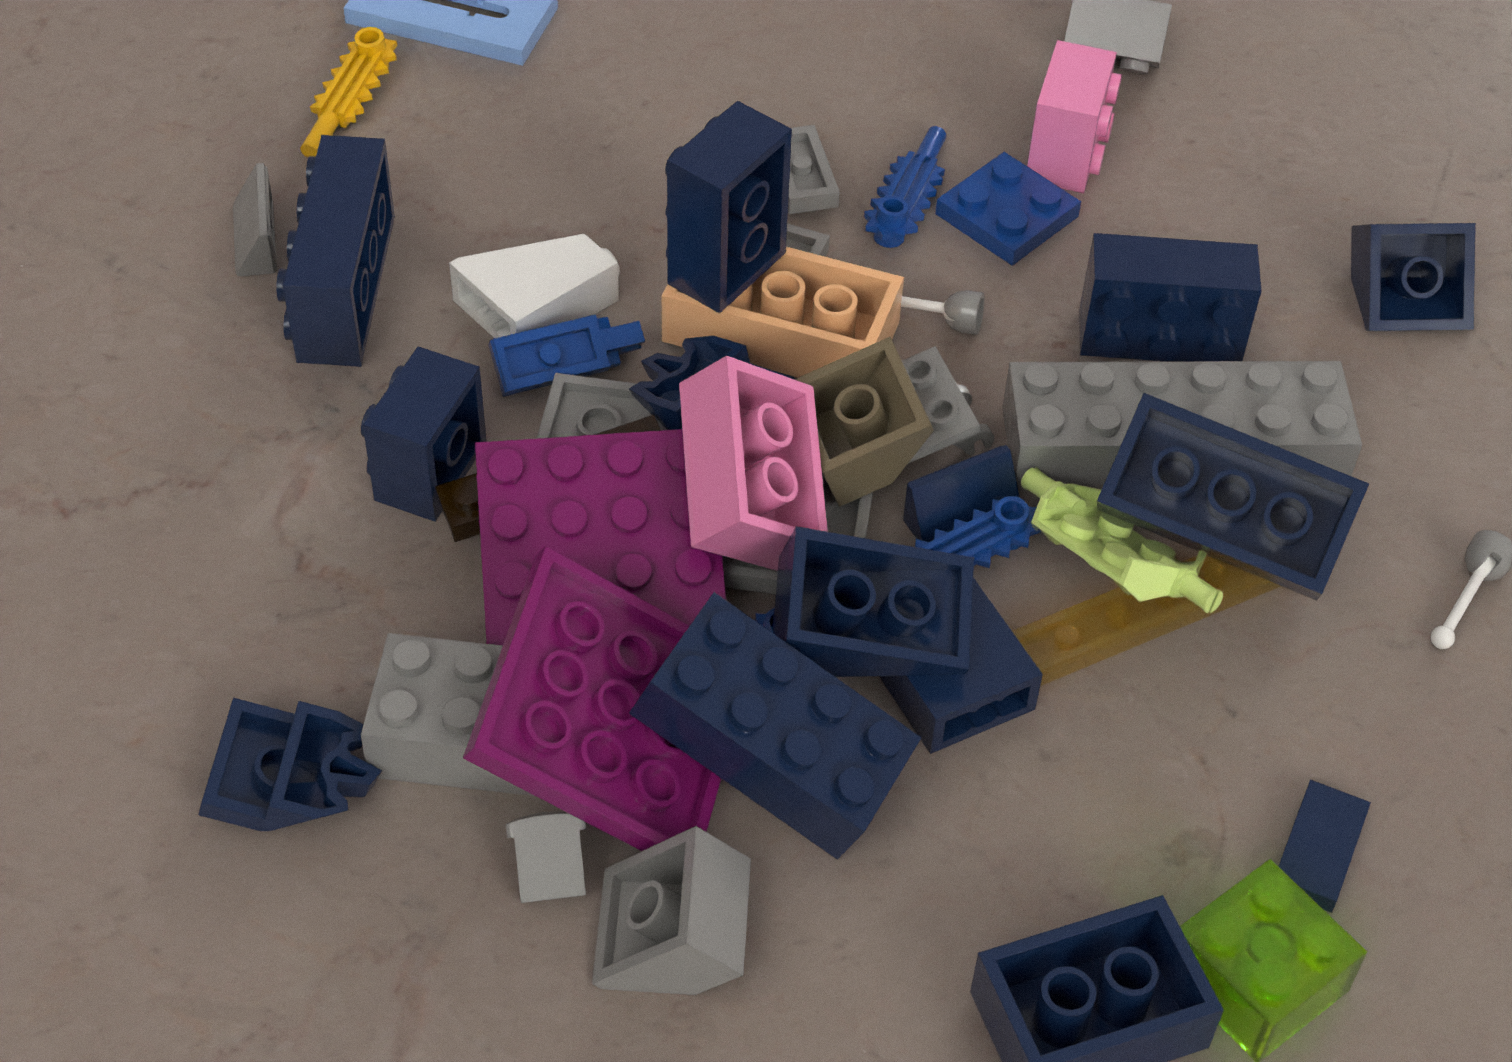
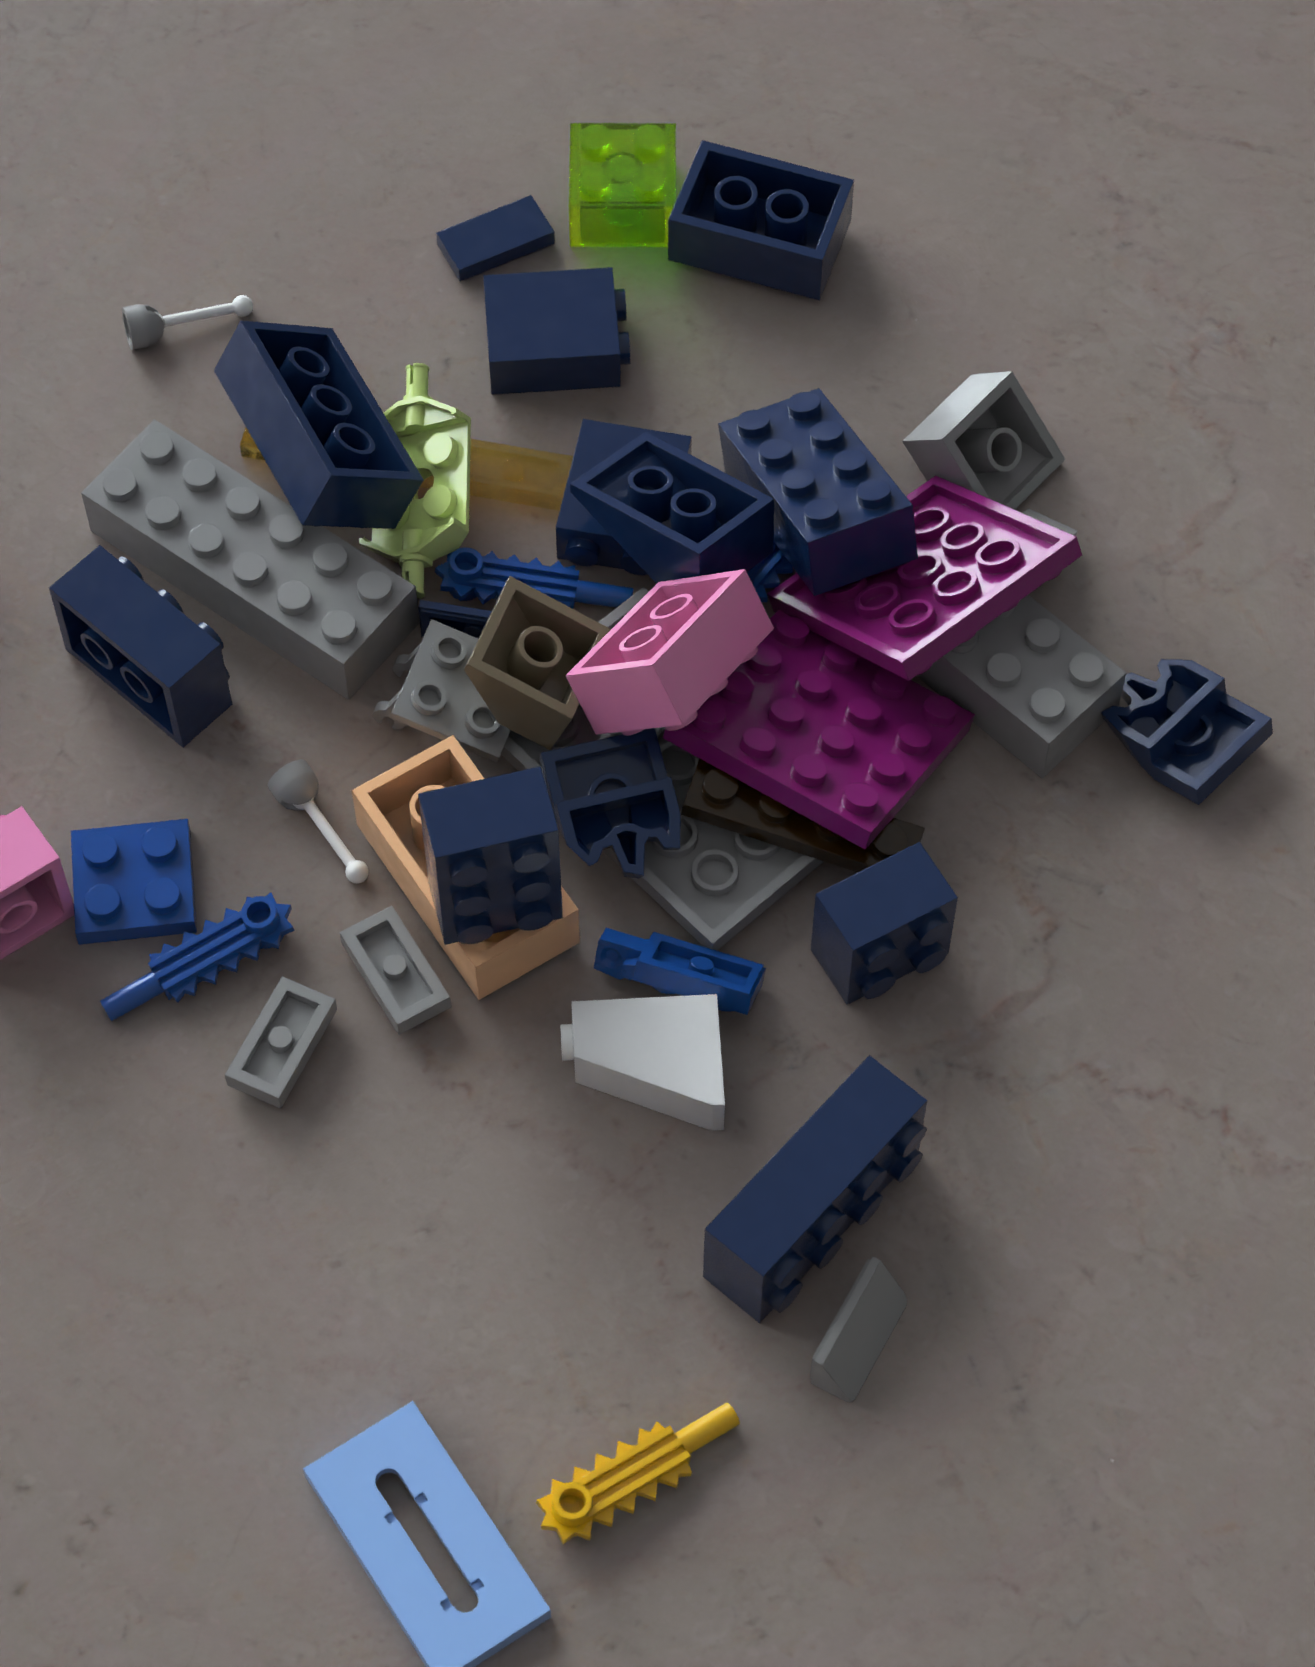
camera: 140 degrees left, 10 degrees up
(1165, 770) = (555, 330): none -> dark blue brick

